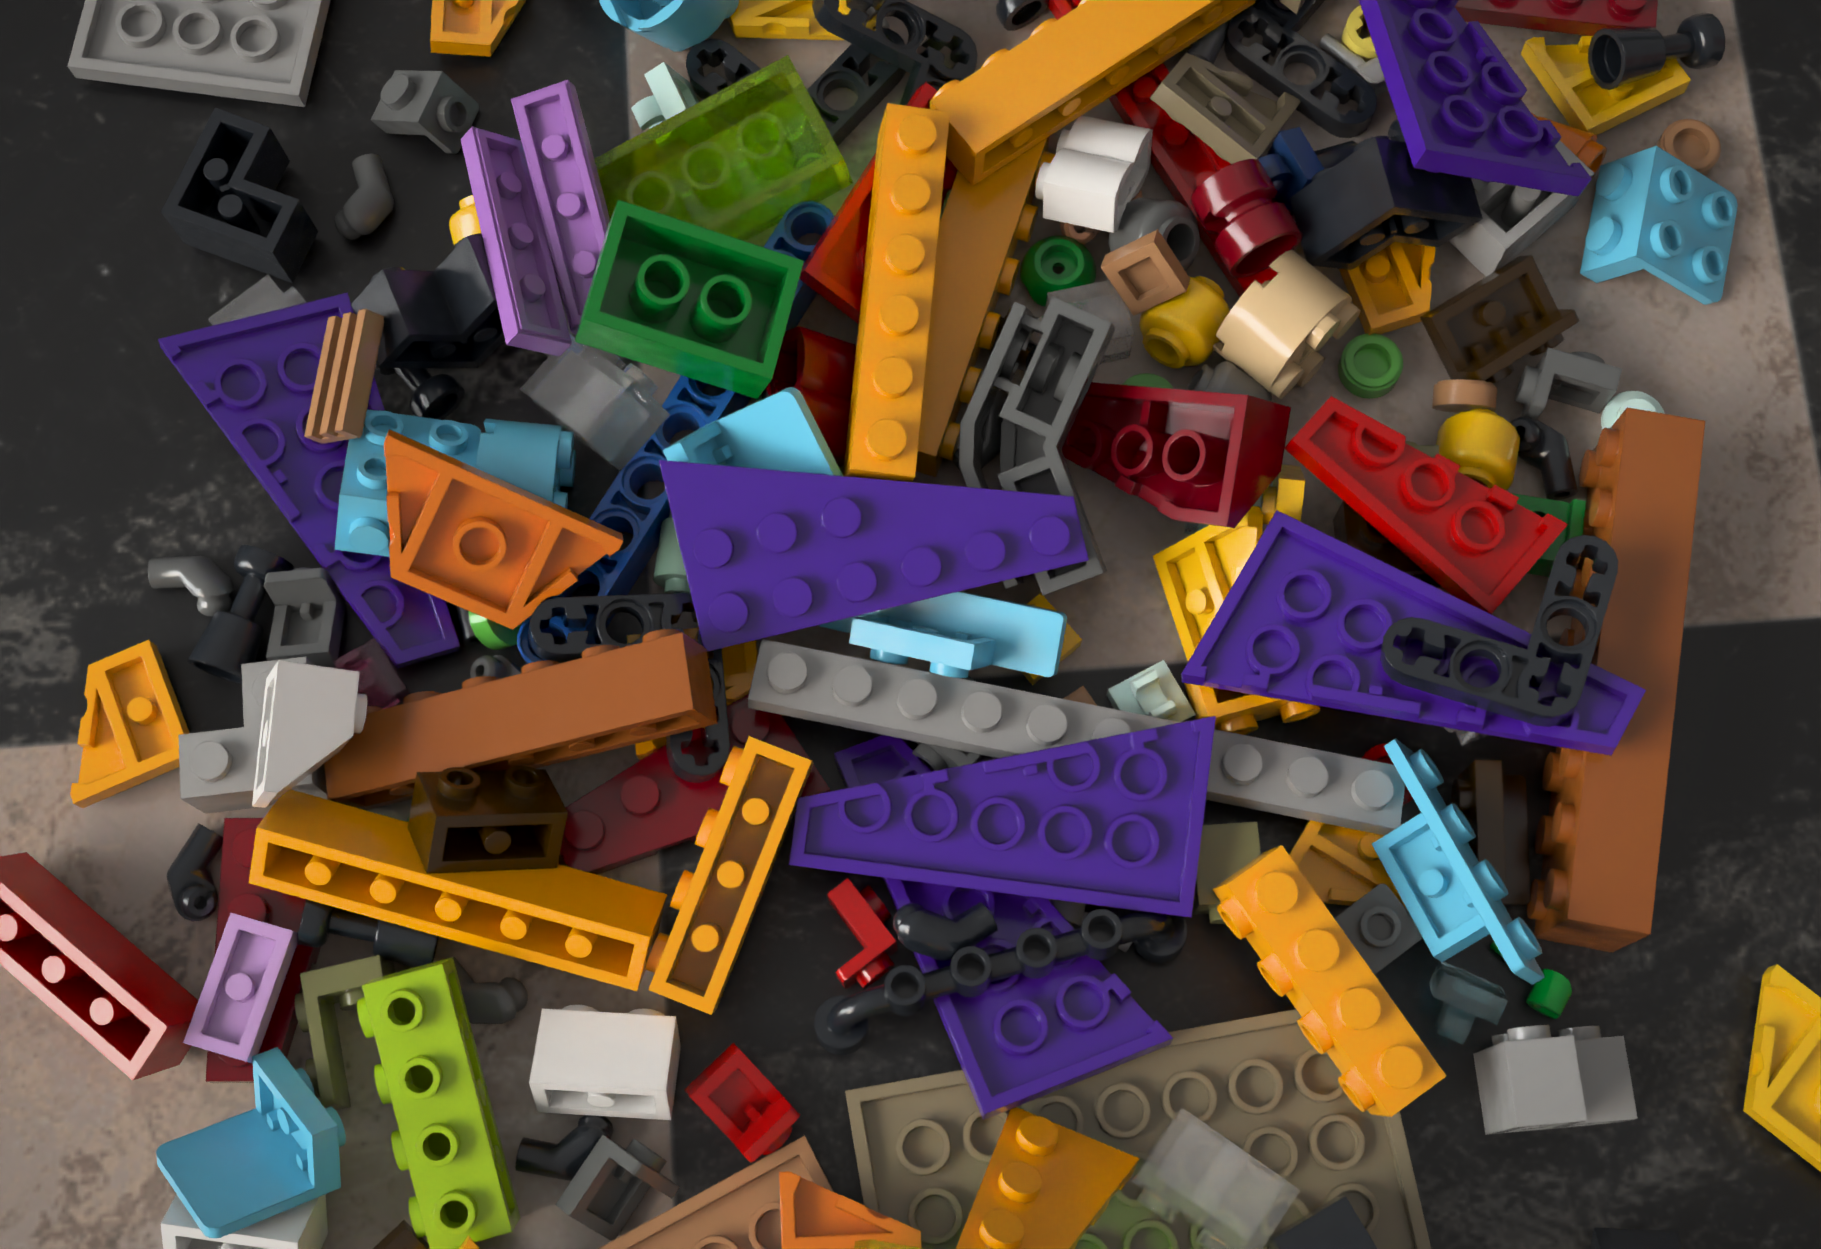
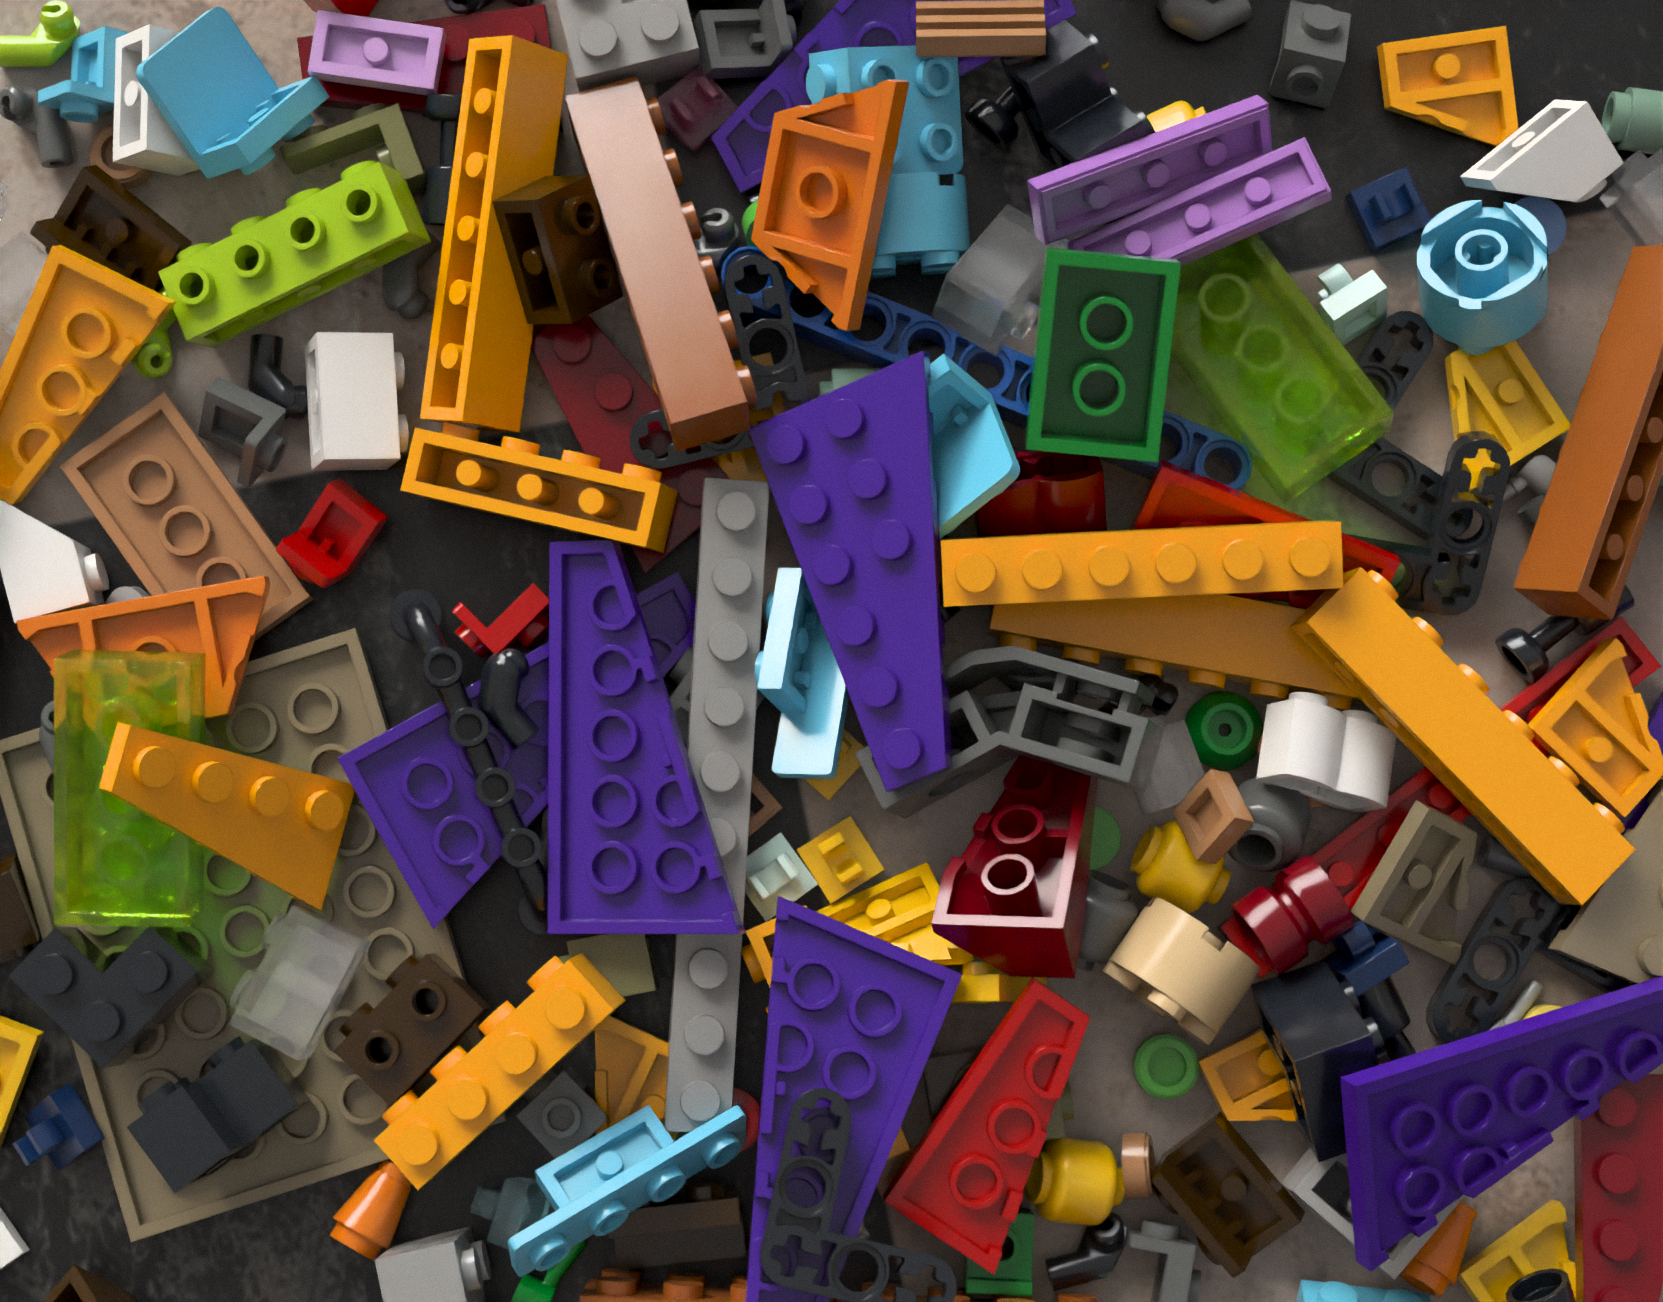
camera: 75 degrees right, 10 degrees up
(304, 724) = (619, 60): white slope -> none
(588, 62) = (1388, 210): none -> dark blue tile
(1140, 637) = (840, 859): none -> yellow tile
(1272, 1074) = (410, 1027): none -> dark brown brick
(1453, 1146) = (373, 1211): none -> orange cone

